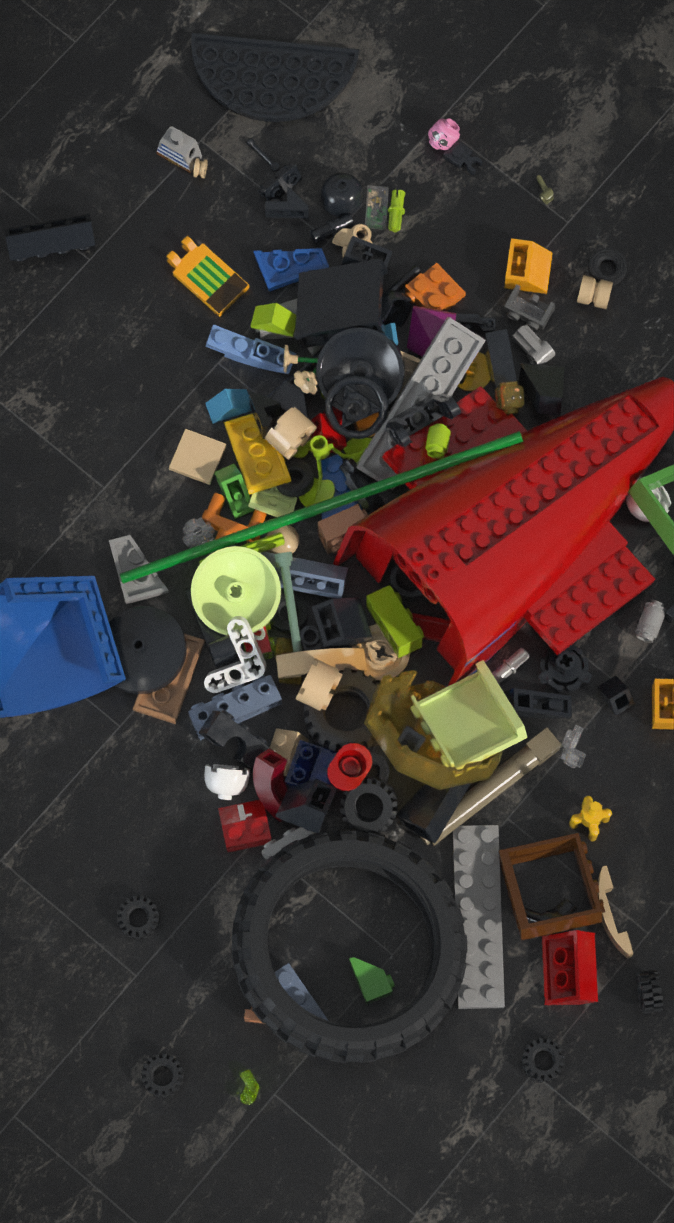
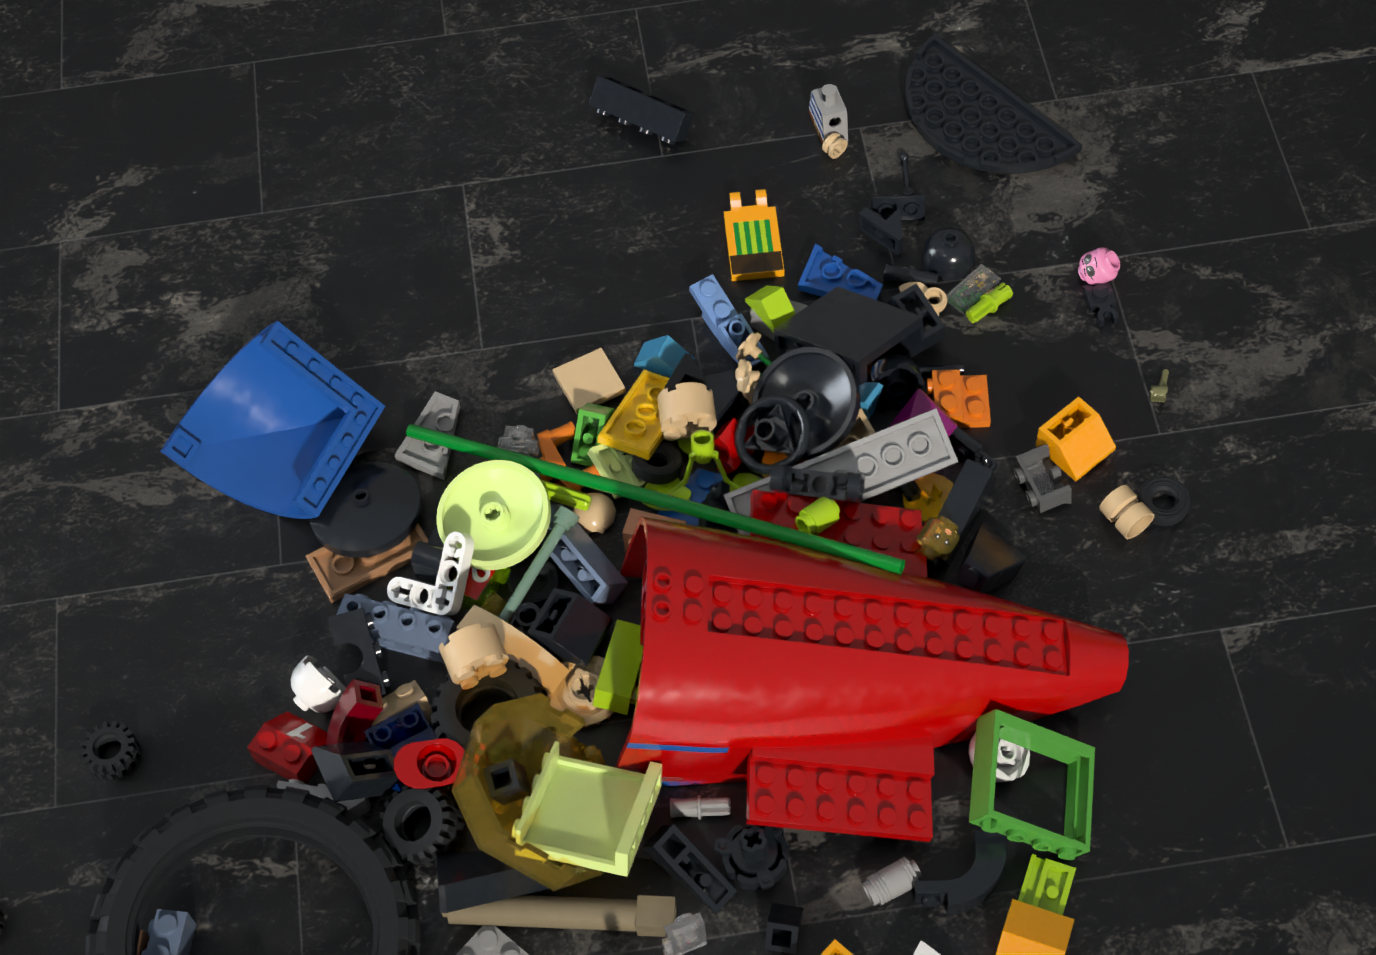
camera: 45 degrees right, 15 degrees down
(537, 351) = (1014, 521): light grey piece -> none

